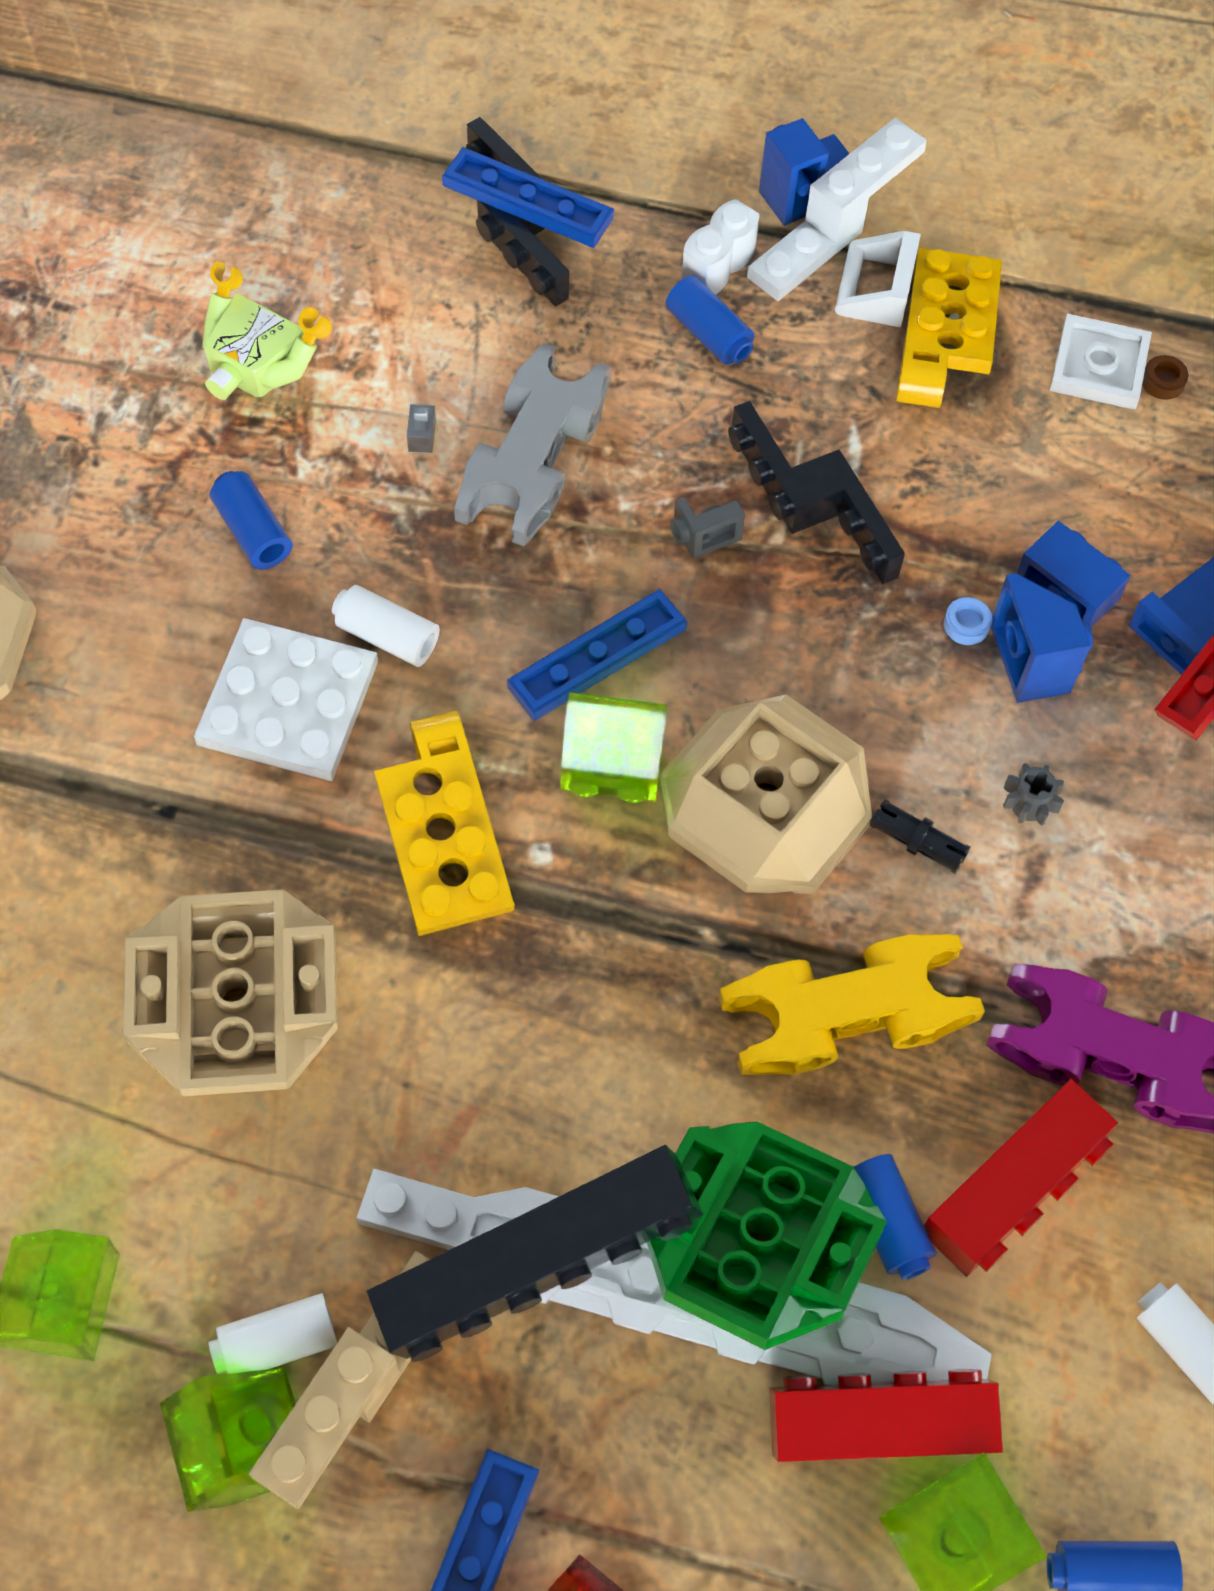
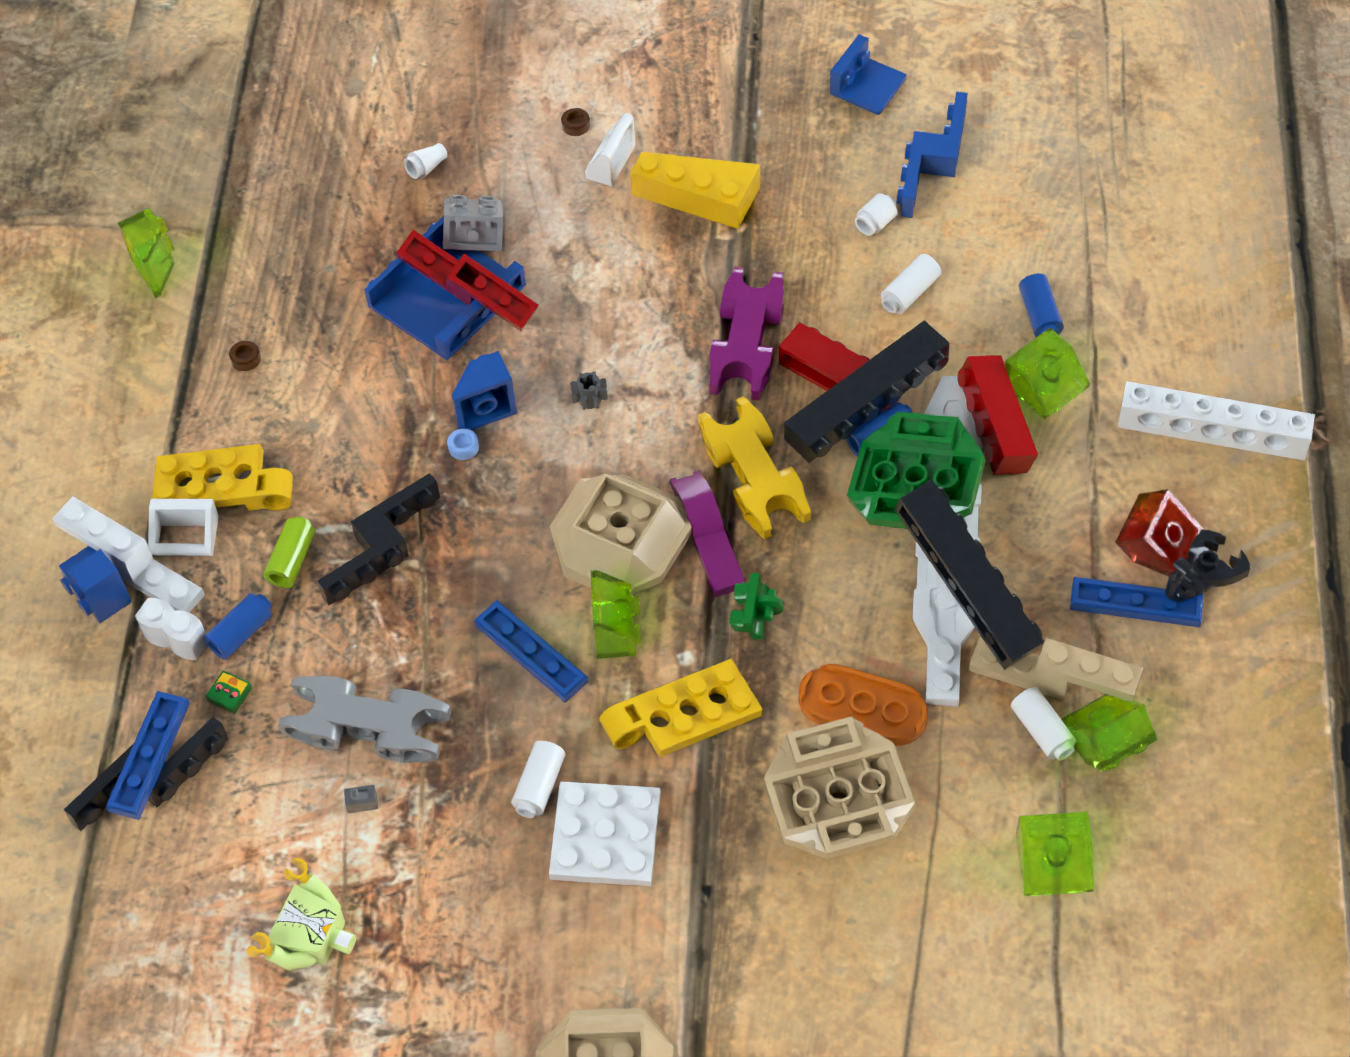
camera: 95 degrees left, 5 degrees down
(250, 519) = (464, 889): blue brick -> none
(393, 1080) = (876, 701): none -> orange tile
(592, 954) = (759, 606): none -> green hips
(619, 307) = (228, 692): none -> green tile
(708, 531) = (423, 599): dark grey bracket -> none
(741, 917) = (708, 533): none -> magenta piece
(815, 387) = (289, 552): none -> lime brick
(920, 836) = (629, 447): black pin -> none
(946, 1193) = (866, 392): none -> black brick
(1075, 571) = (422, 386): blue brick -> none
(1101, 361) = (236, 392): white tile -> none

